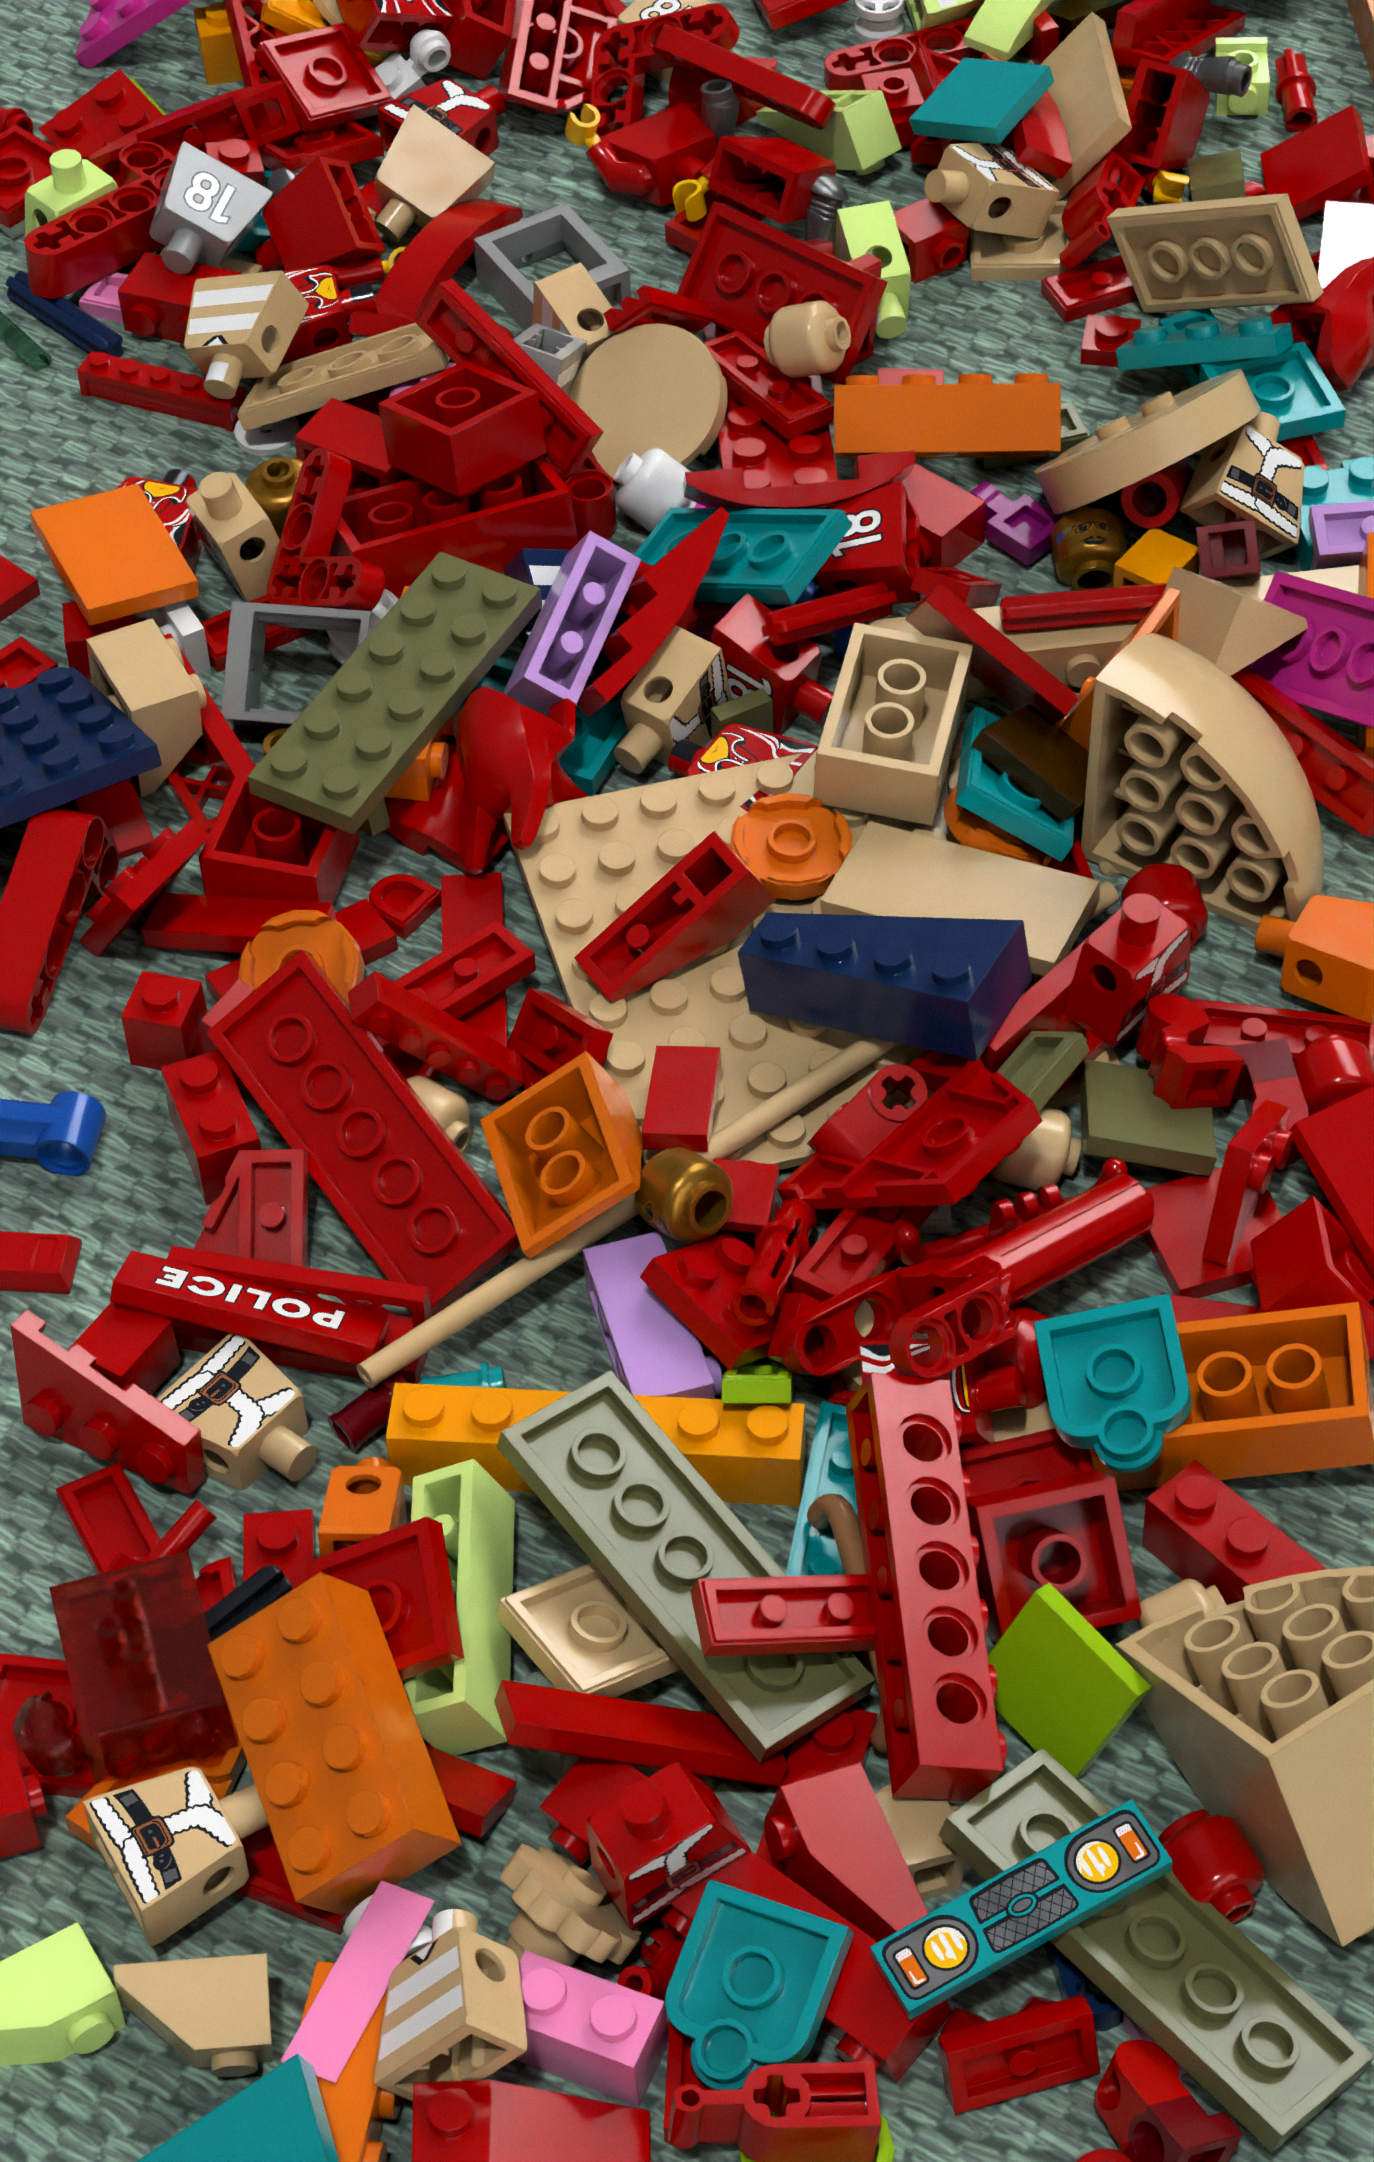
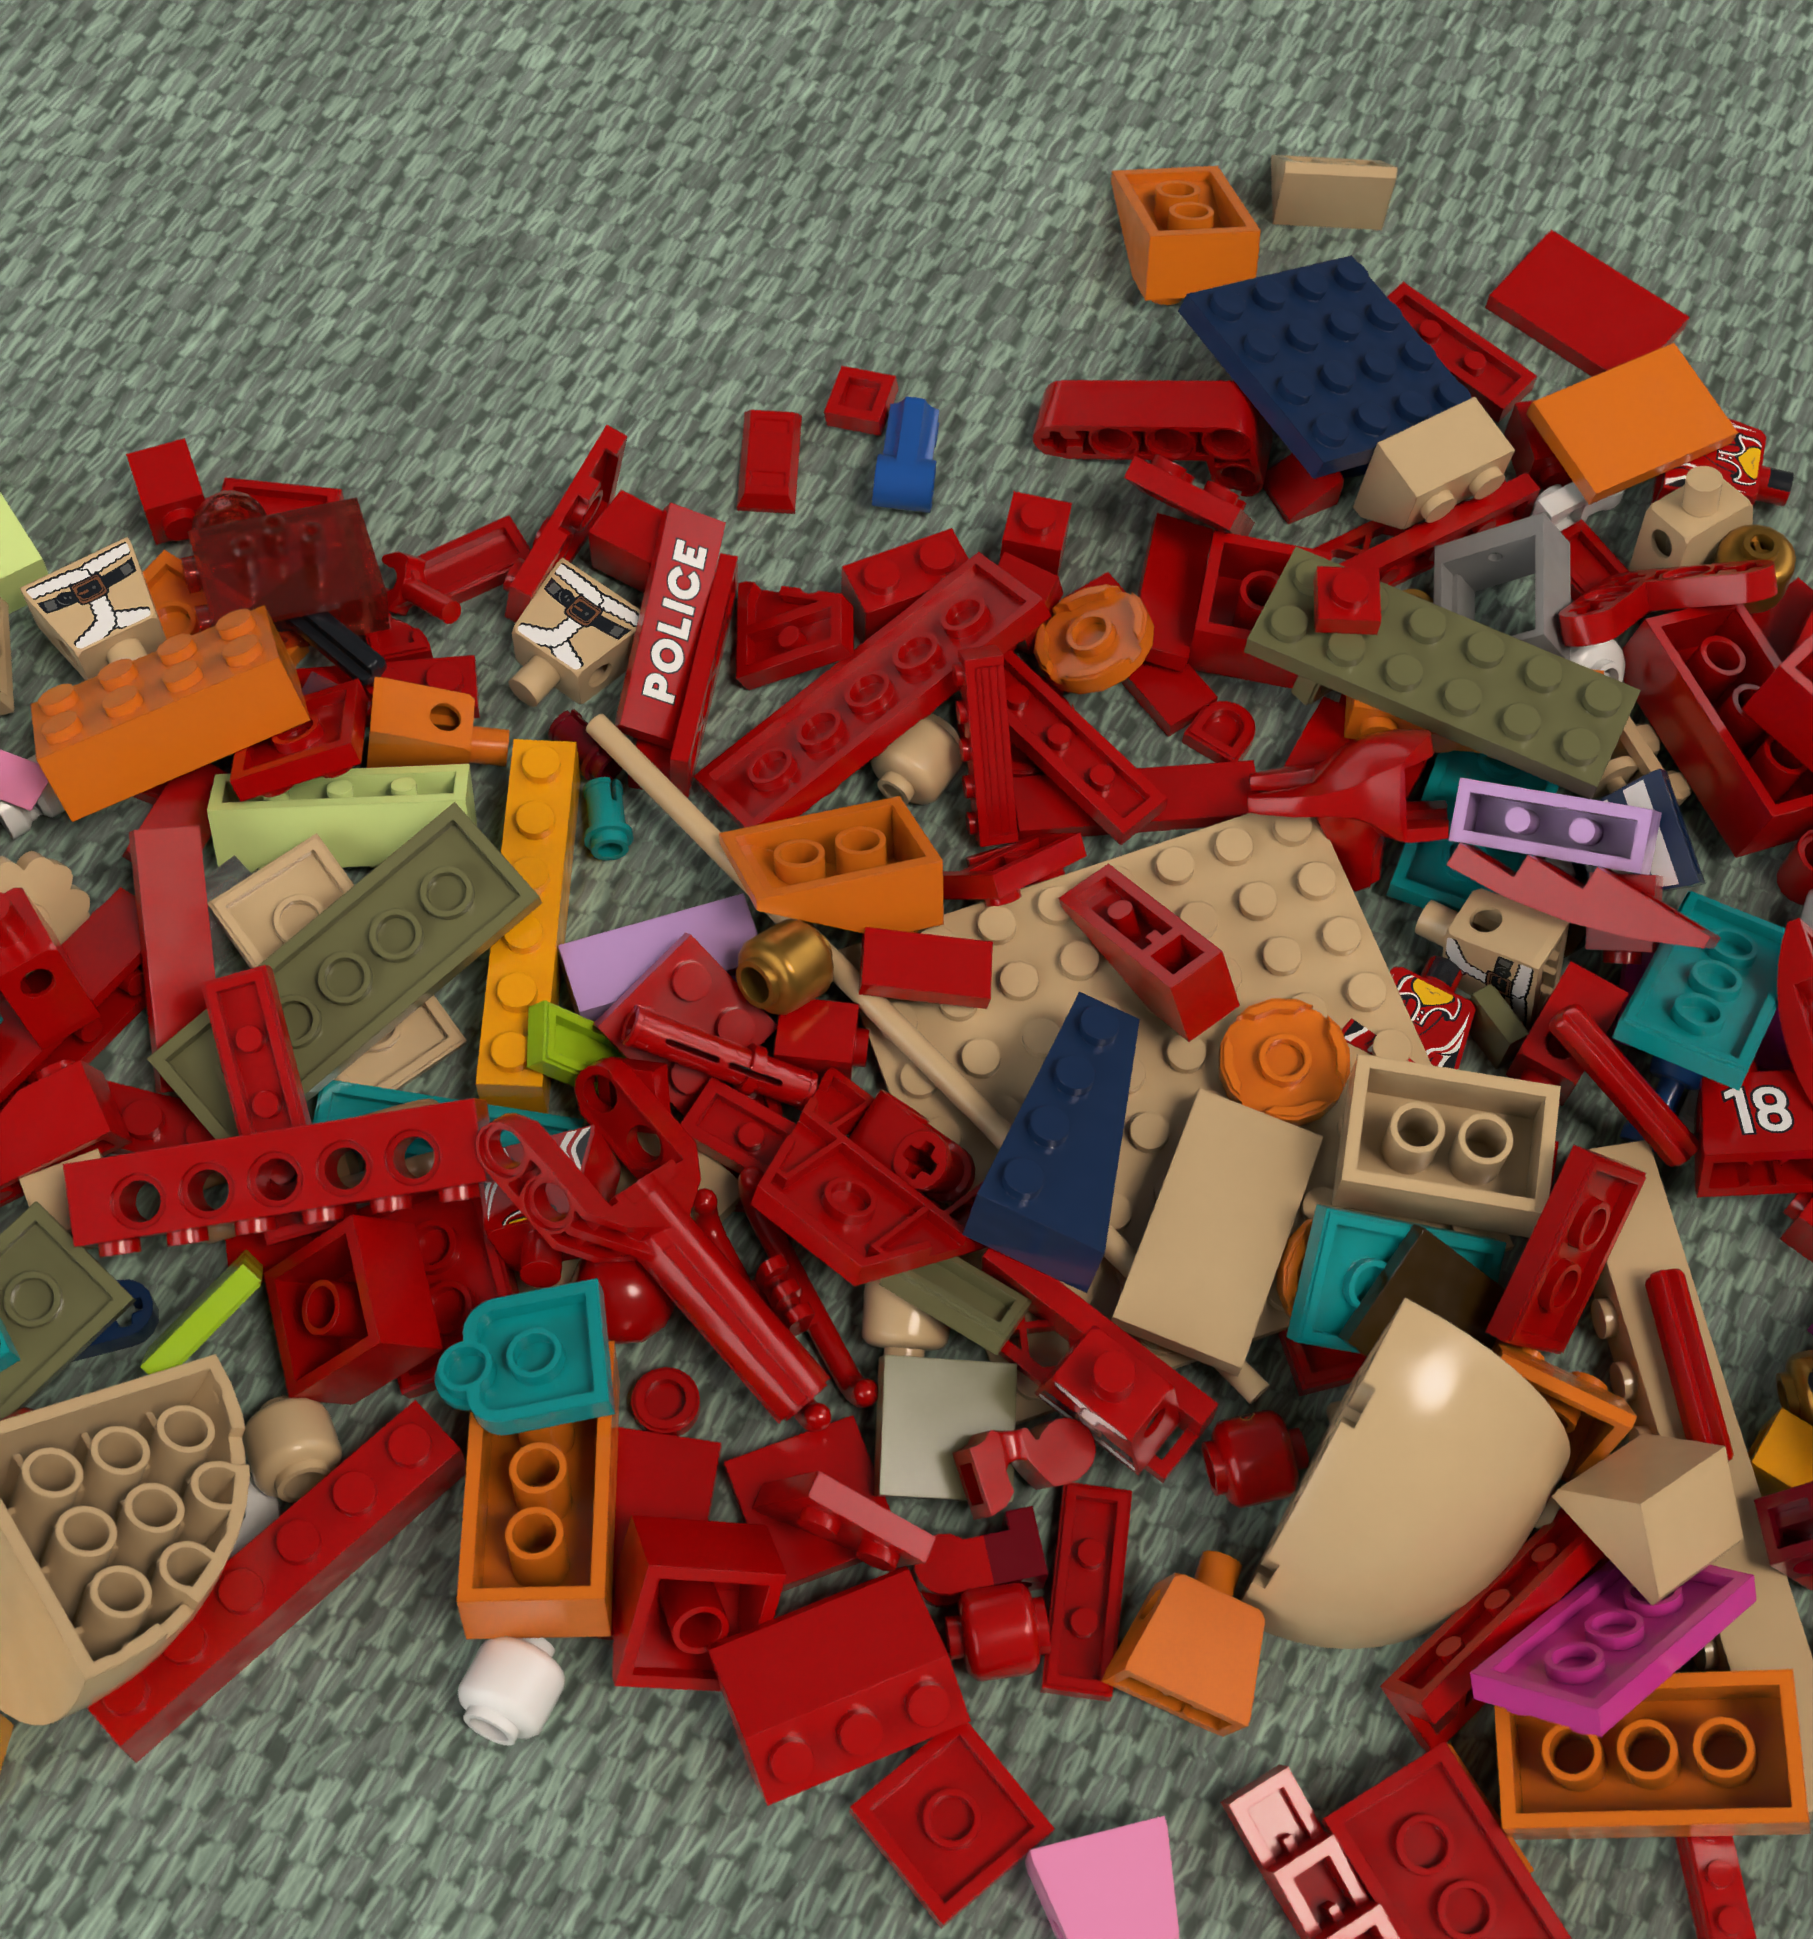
camera: 80 degrees right, 15 degrees up
(328, 729) = (1347, 600): none -> red plate
(969, 588) = (1726, 1236): red plate -> none

